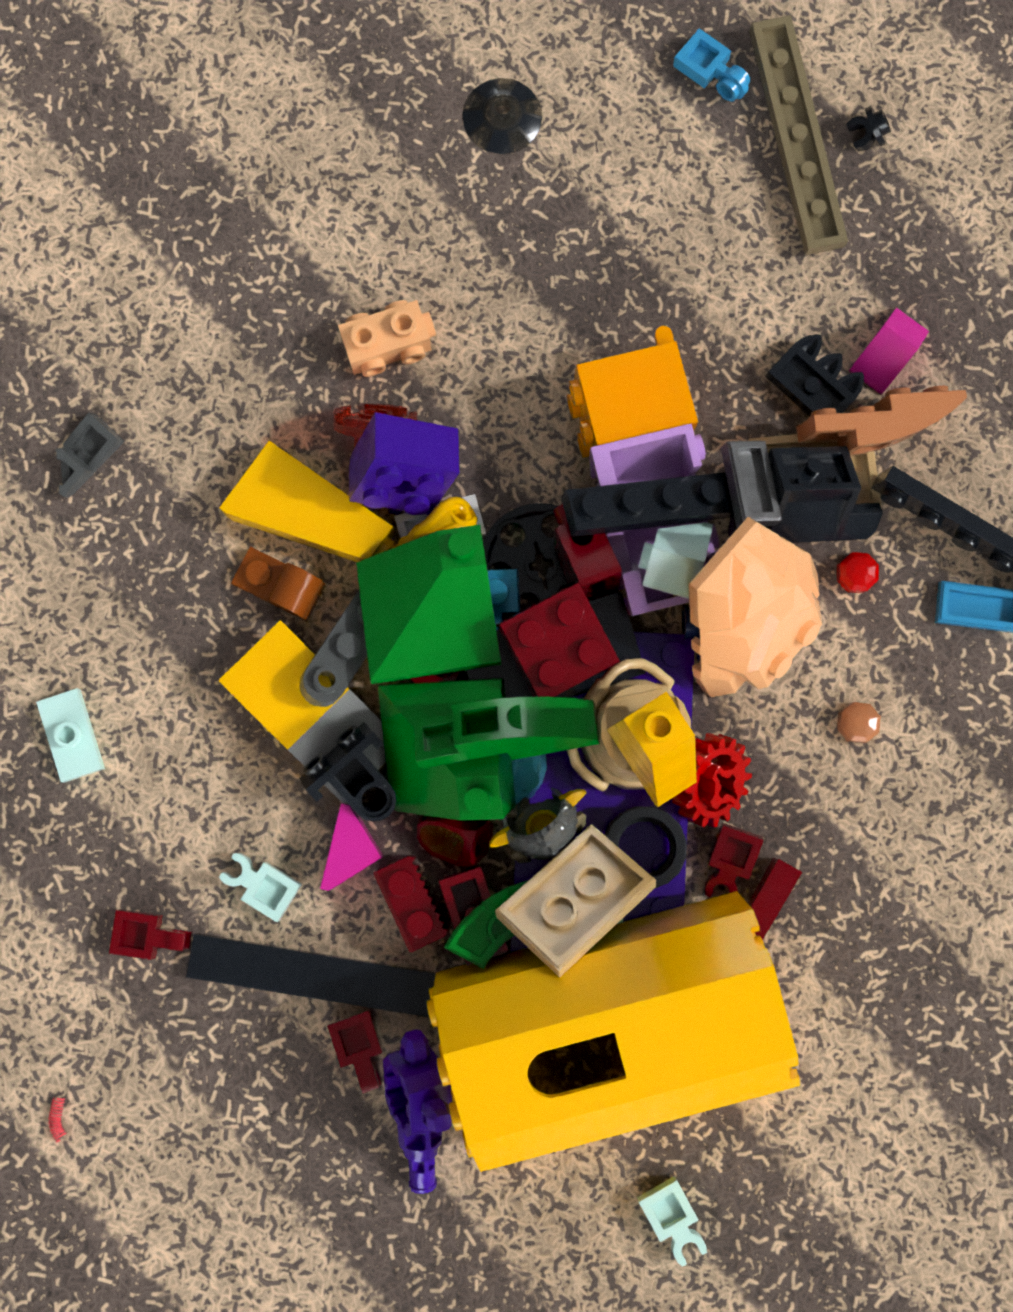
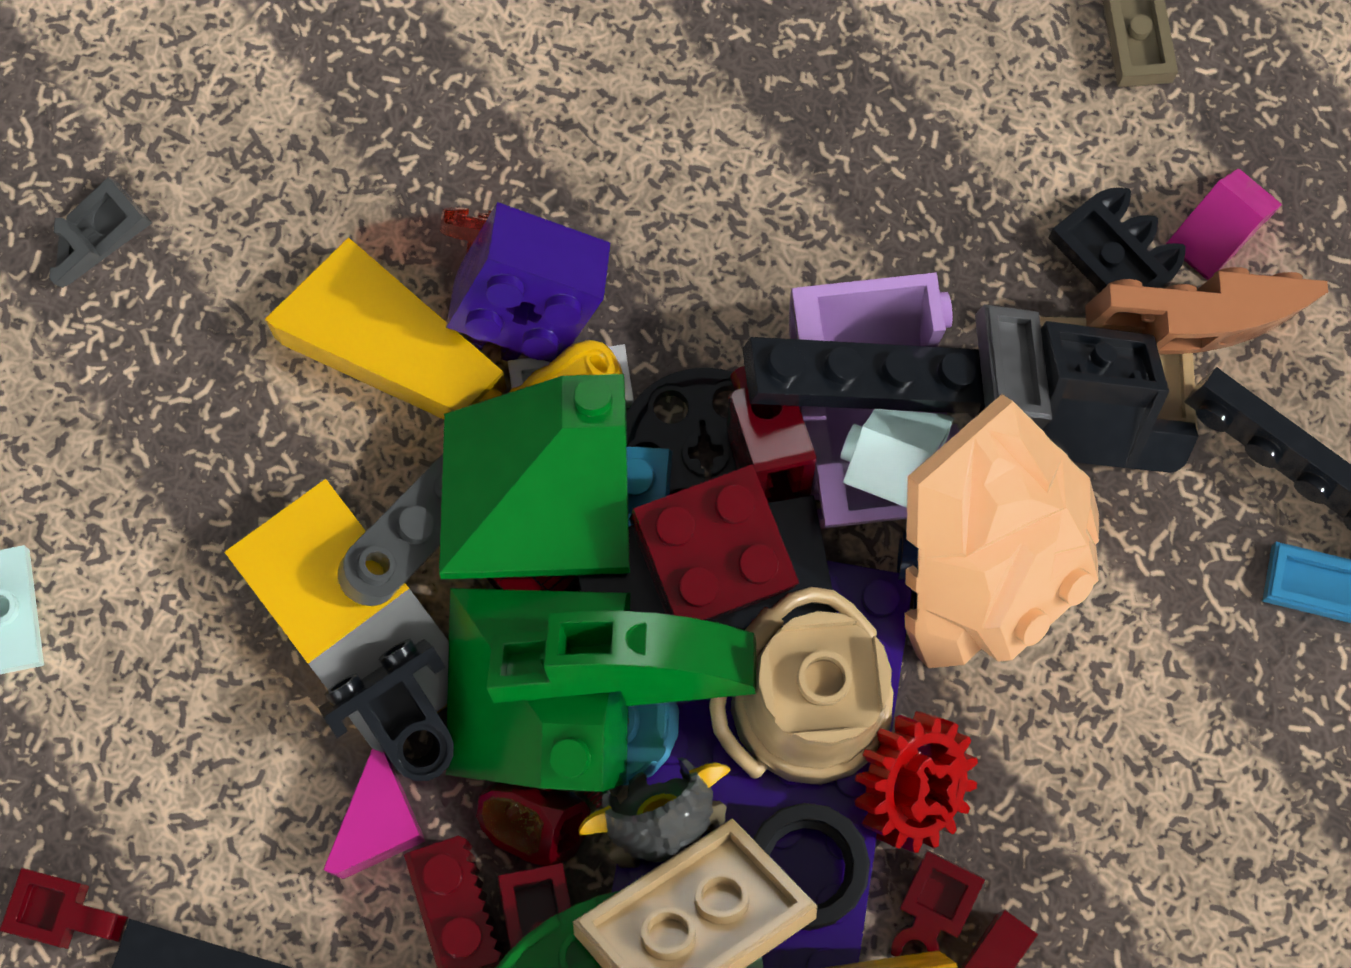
camera: 10 degrees right, 10 degrees down
(267, 889) = (246, 865): light aqua plate -> none
(279, 583) = (335, 437): dark orange plate -> none
(387, 337) = (531, 126): light nougat brick -> none
(631, 394) = (857, 226): light orange container -> none
(658, 748) = (836, 687): yellow slope -> none
(857, 572) = (1156, 516): red tile -> none
(858, 722) = (1140, 729): nougat tile -> none

